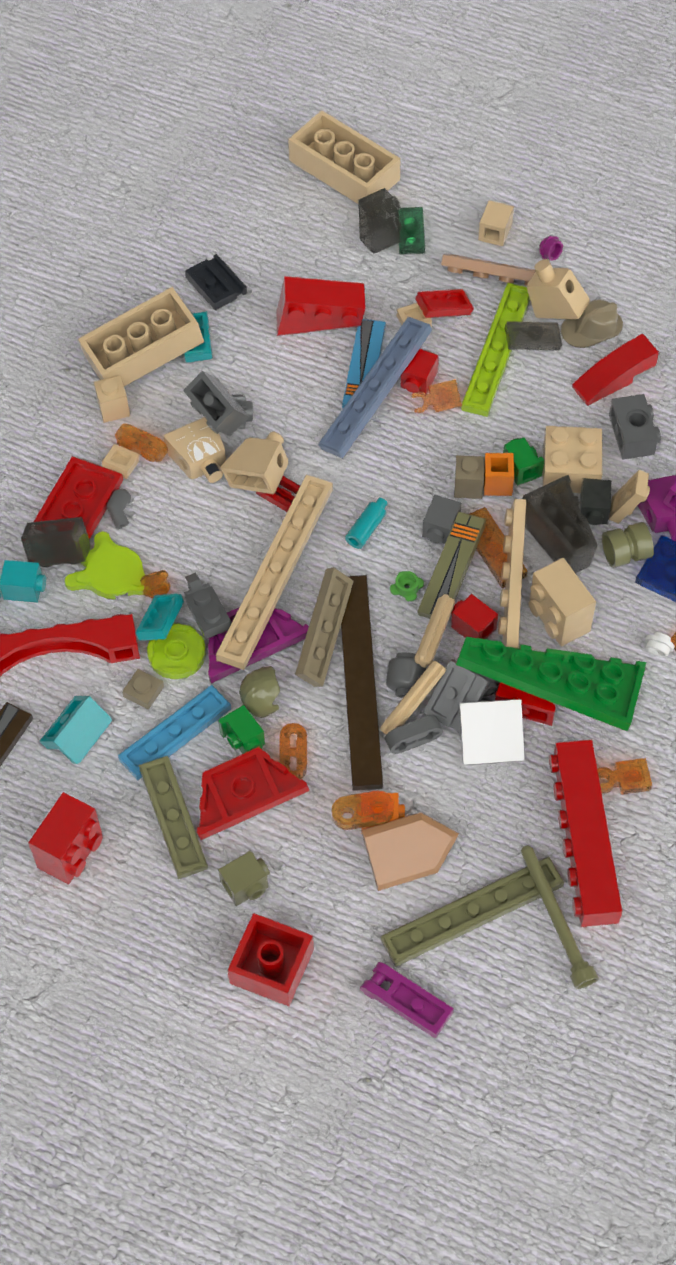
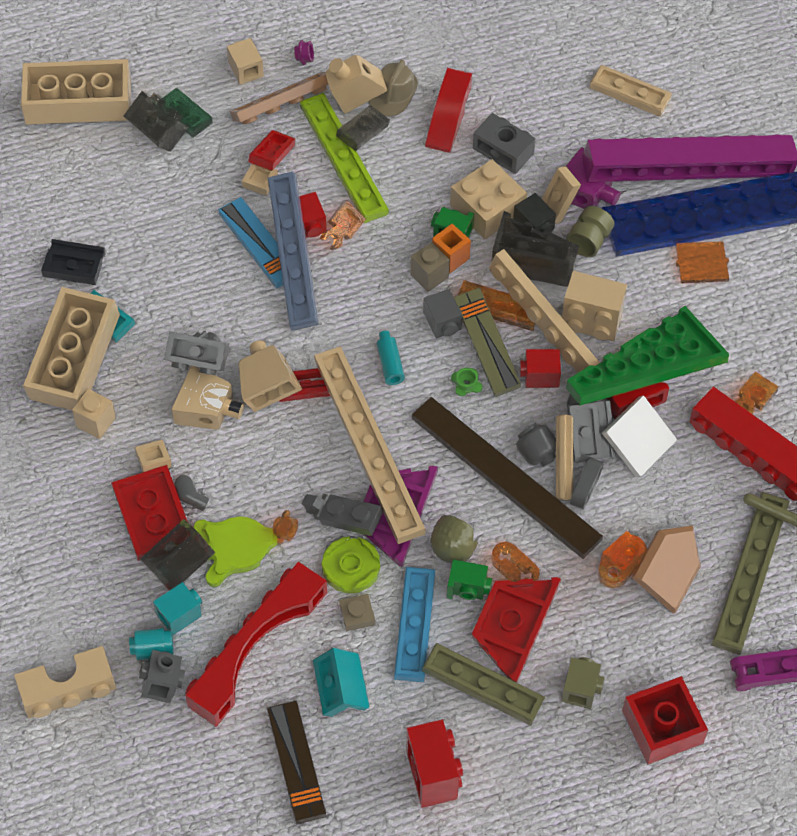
camera: 45 degrees left, 0 degrees up
(141, 442) = (154, 429): clear orange plate -> none
(159, 617) = (317, 548): teal plate -> none
(319, 305) = (182, 220): red wedge -> none
(324, 627) = (450, 464): dark tan plate -> none
(434, 631) = (530, 396): tan axle -> none
(659, 644) = (681, 286): white plate -> none

